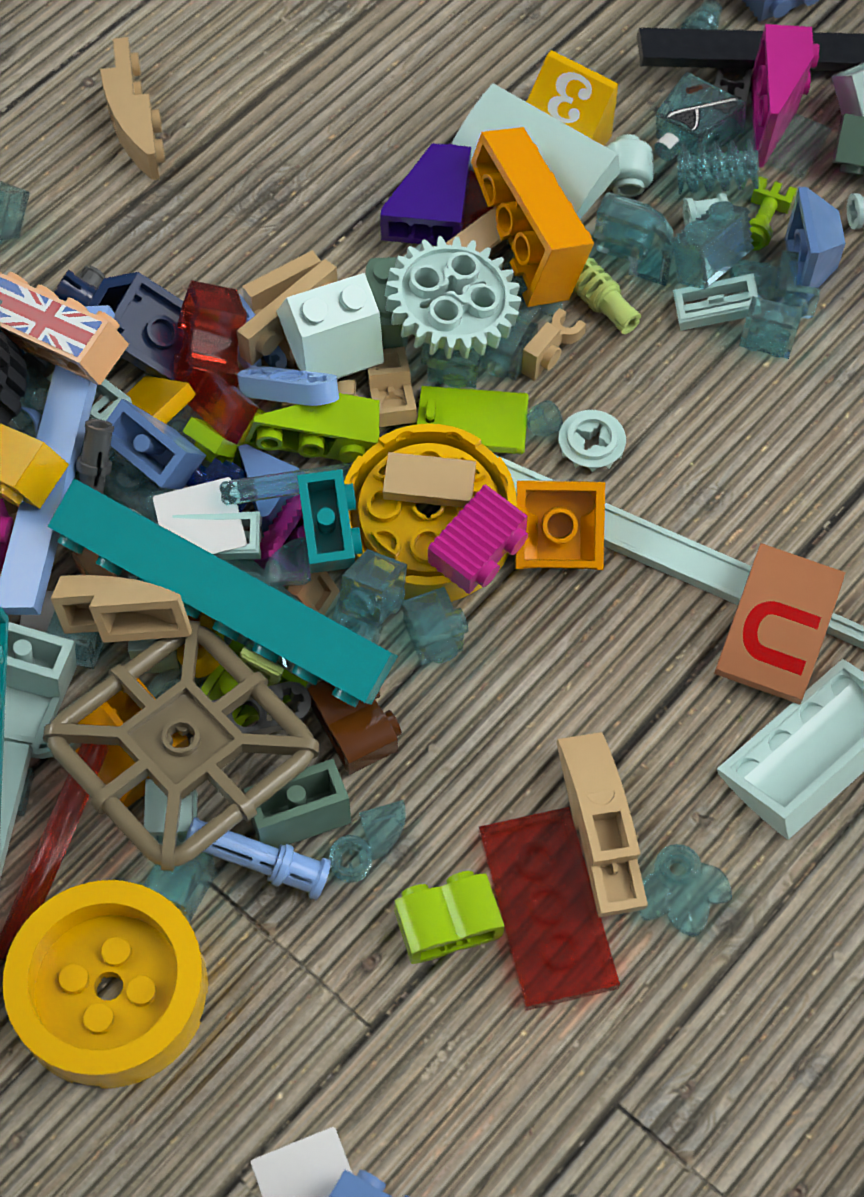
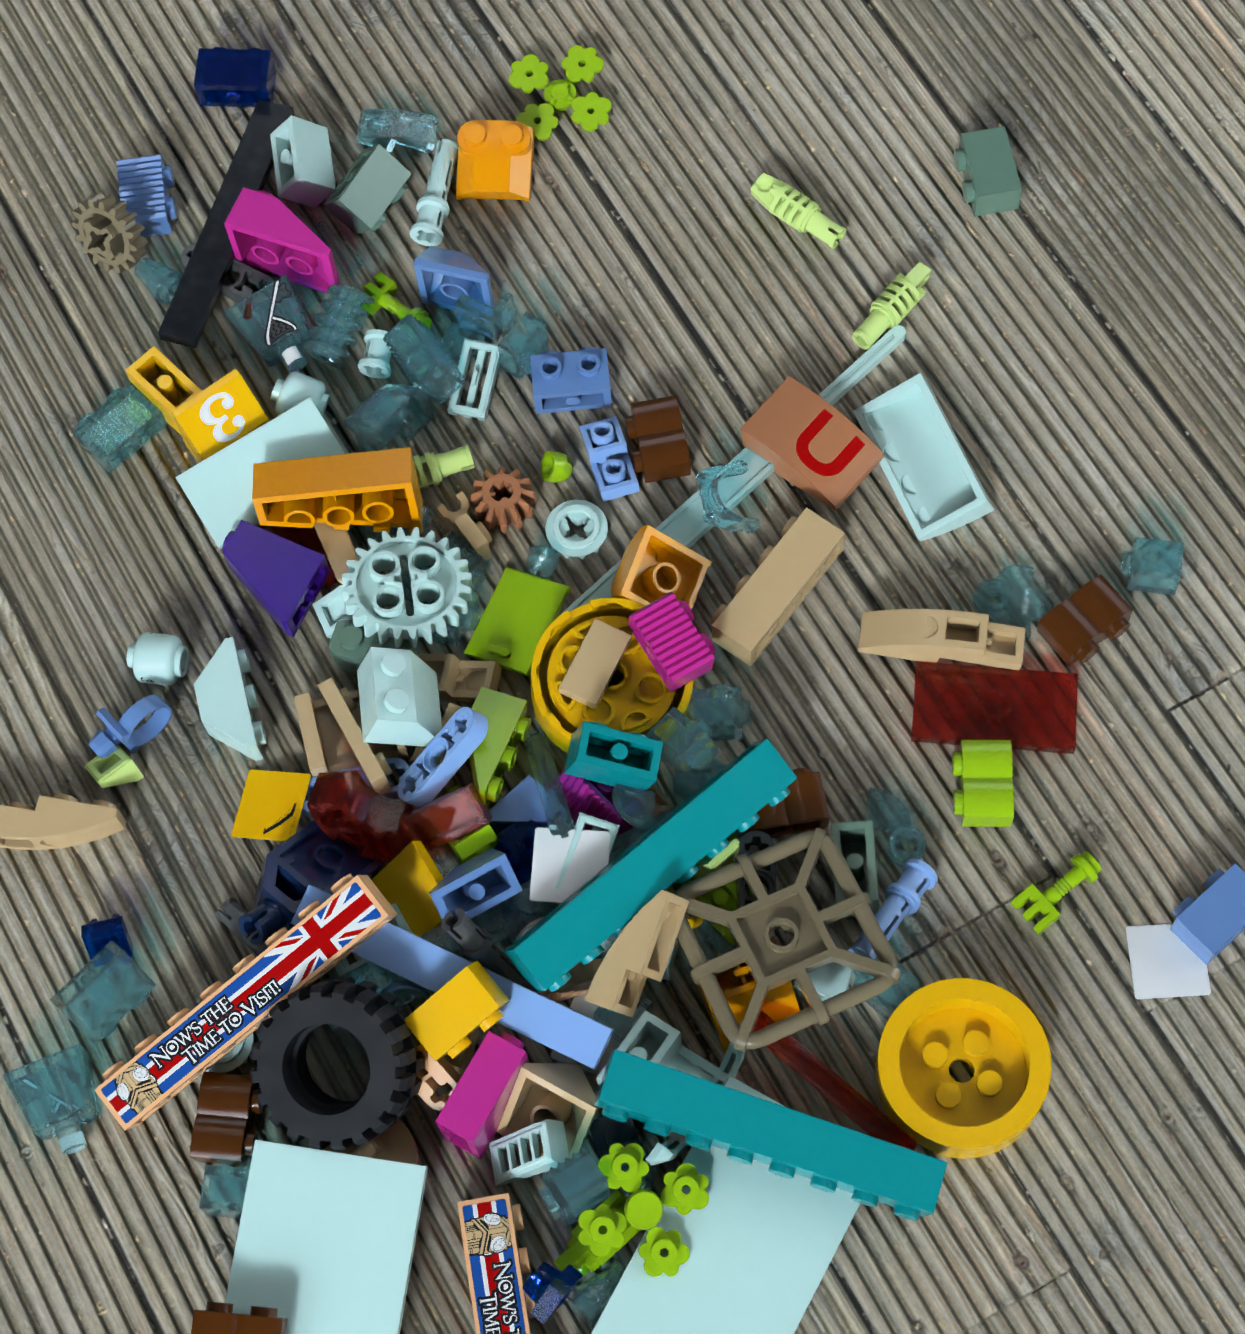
camera: 65 degrees left, 5 degrees up
(41, 193) = (100, 933): none -> clear blue tile
(204, 150) = (114, 769): none -> yellowish green slope
(214, 270) = (271, 805): none -> yellow sticker
(236, 135) = (105, 741): none -> medium blue piece
(298, 208) = (228, 702): none -> light aqua slope
(318, 143) = (158, 658): none -> light aqua head
(383, 1054) = (1084, 868): none -> lime hinge
(529, 36) = (119, 427): none -> clear light blue brick
(594, 44) = (161, 383): none -> yellow brick
(594, 363) = (503, 499): none -> nougat gear
(597, 638) = (777, 586): none -> tan brick
(653, 402) = (555, 467): none -> lime hinge
(685, 447) = (609, 459): none -> light blue slope
(685, 535) = (714, 510): none -> clear light blue helmet
(687, 973) = (1085, 620): none -> reddish brown brick
(722, 481) = (659, 438): none -> reddish brown brick
(753, 382) = (570, 380): none -> medium blue brick
(787, 1032) = (1153, 566): none -> clear light blue brick

